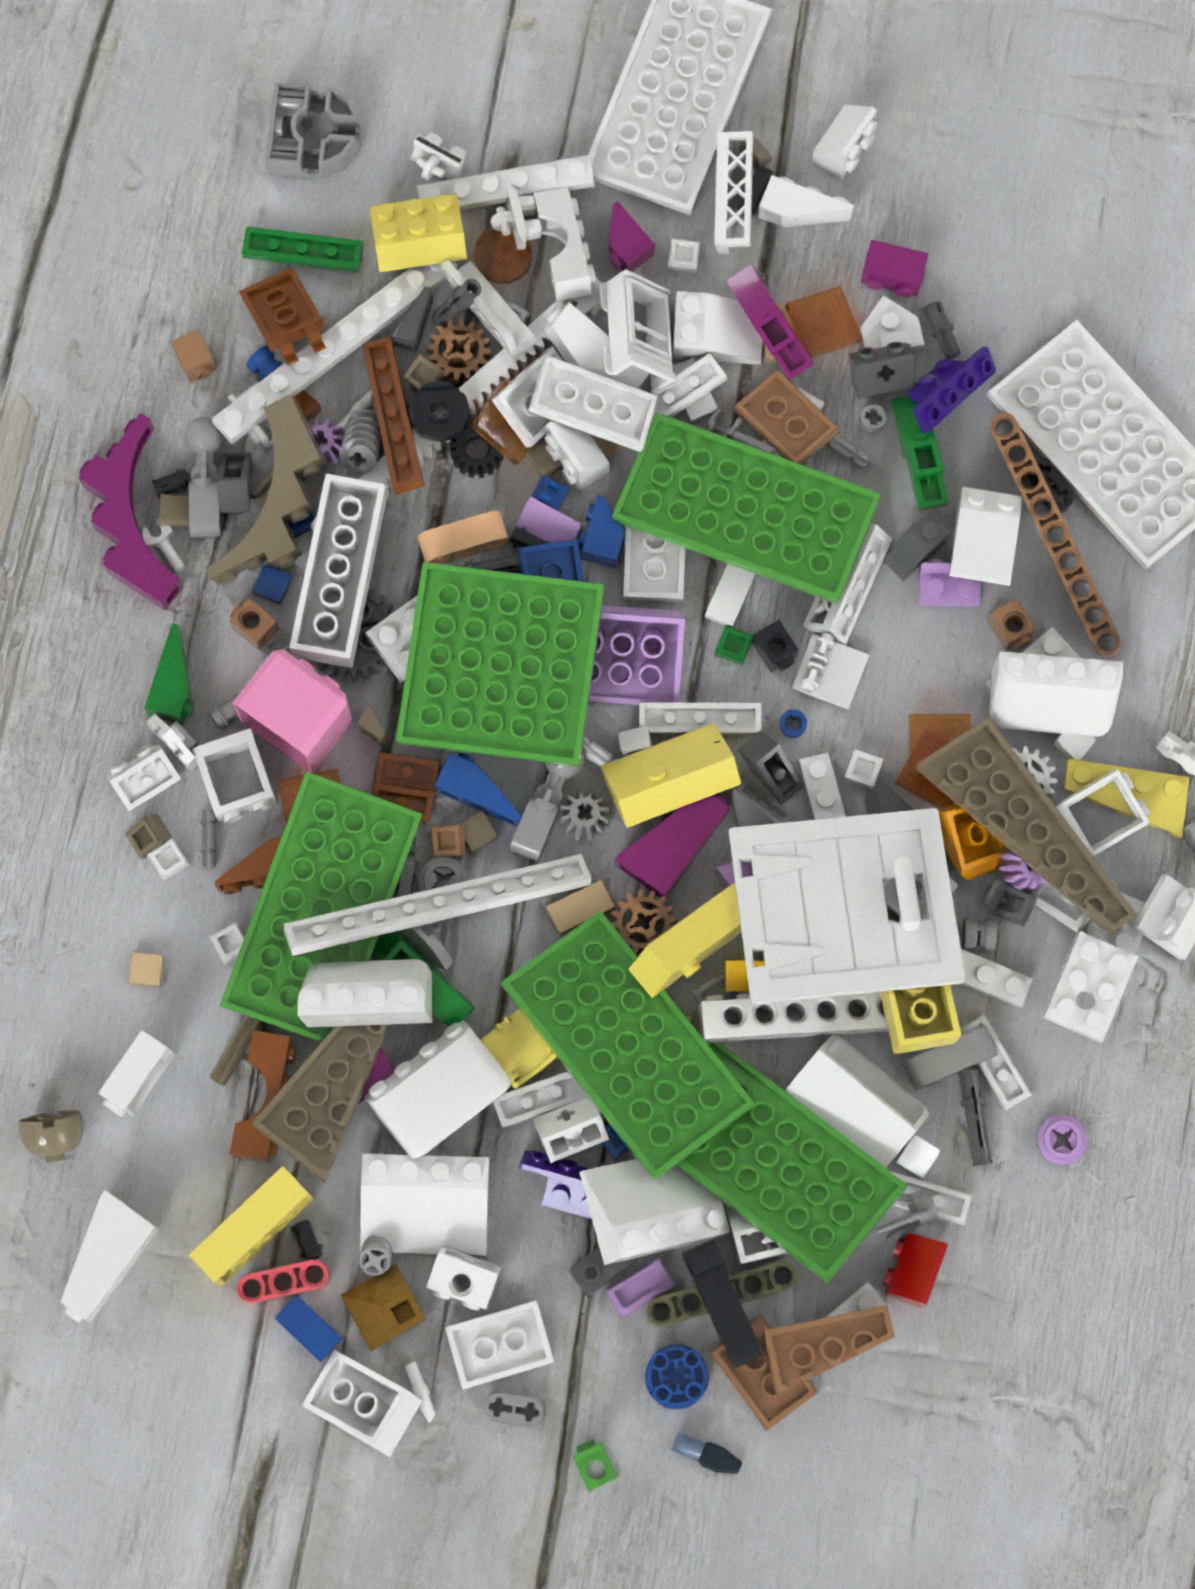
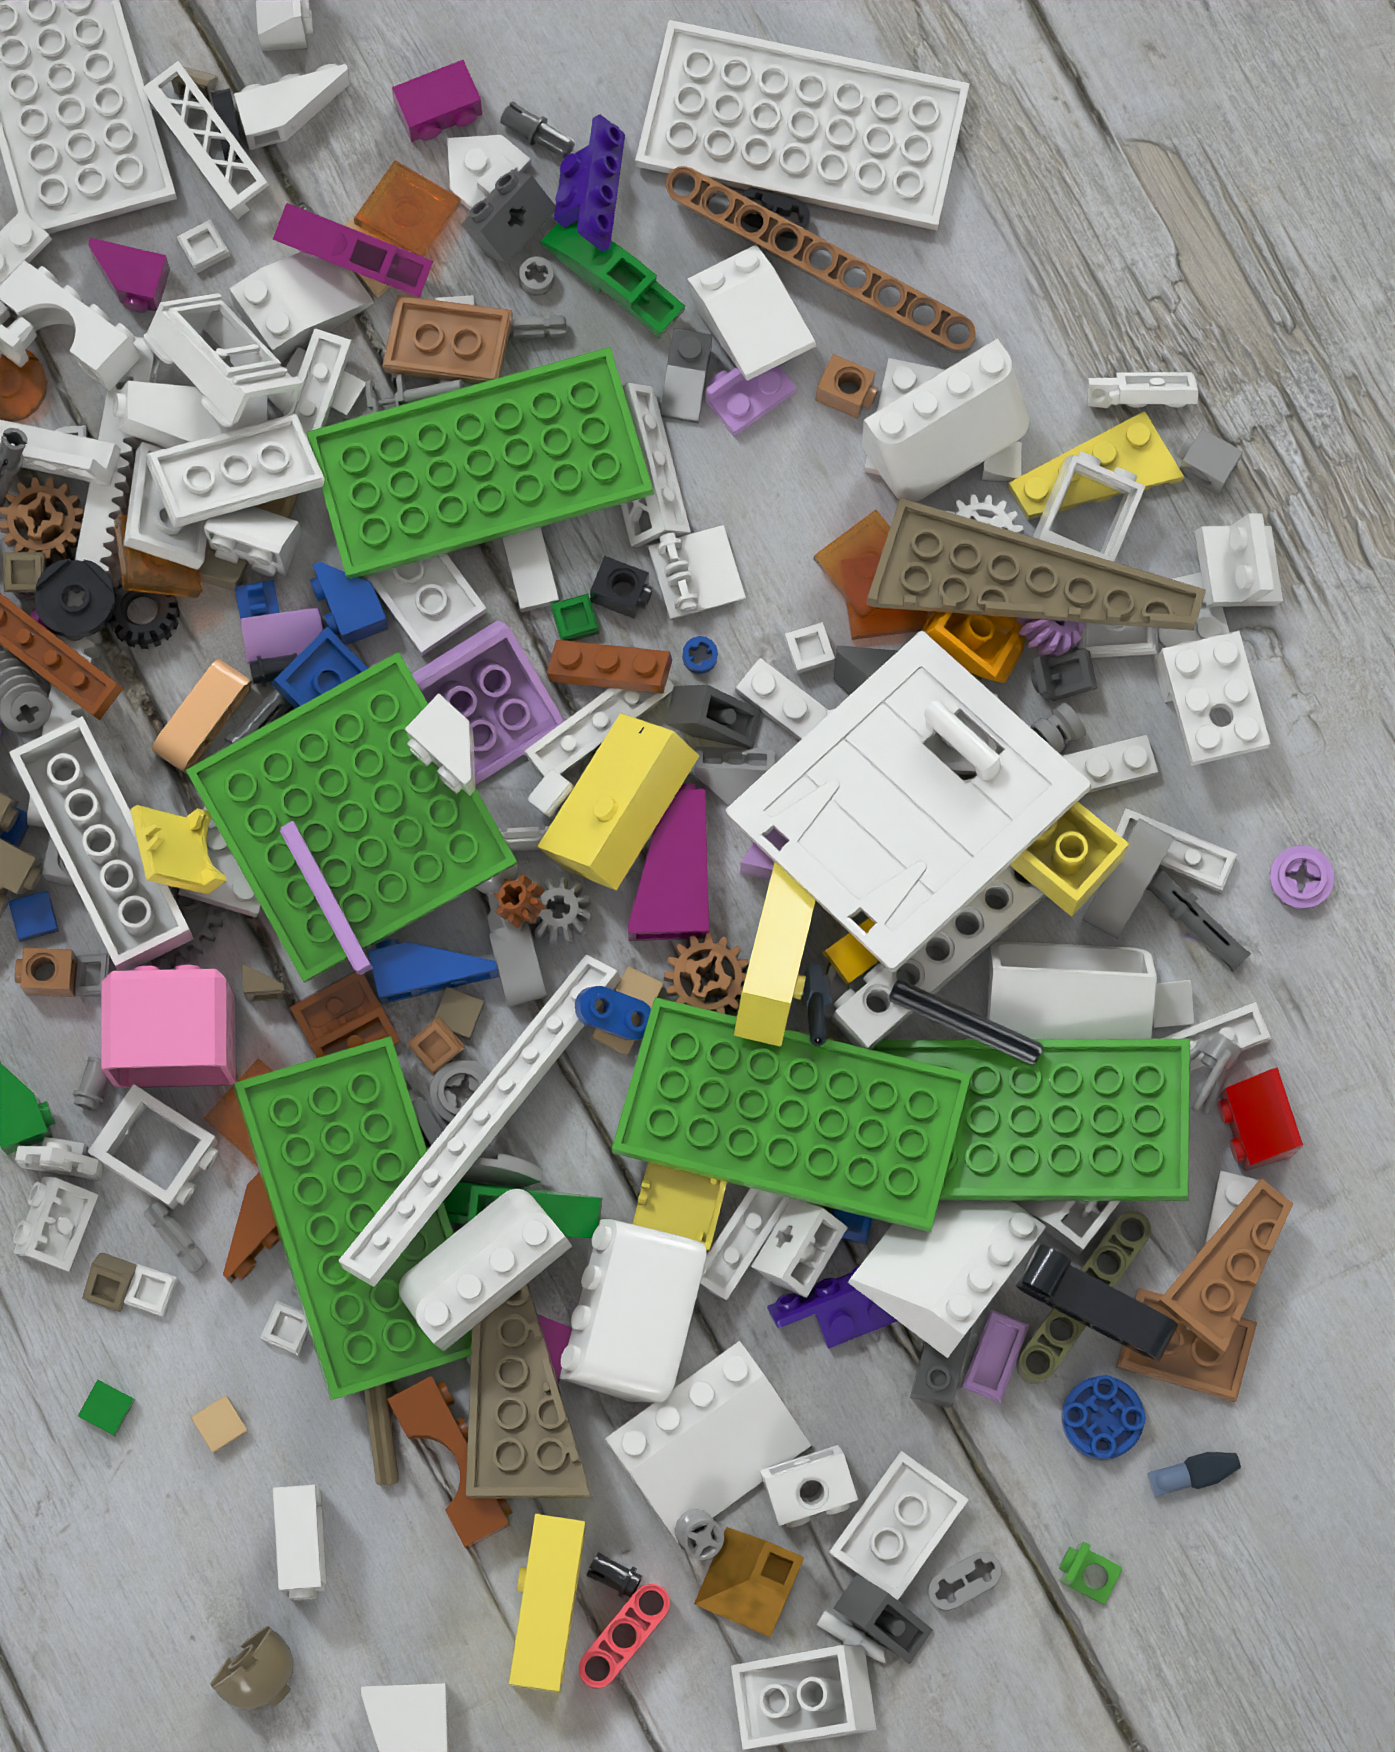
camera: 40 degrees left, 0 degrees up
(88, 909) = (106, 1407): none -> green tile
(308, 1328) = (687, 1664): blue tile -> none
(379, 605) = (176, 849): none -> light yellow piece
(445, 700) = (325, 898): none -> lavender tile
(446, 1393) = (883, 1618): none -> dark grey slope
(563, 790) = (520, 901): none -> dark orange gear
(568, 903) = (616, 1013): none -> blue plate
(589, 660) = (447, 740): none -> white slope
(699, 984) = (816, 996): none -> piece
(730, 689) = (609, 666): none -> dark orange plate
(776, 1069) = (965, 1022): none -> black axle

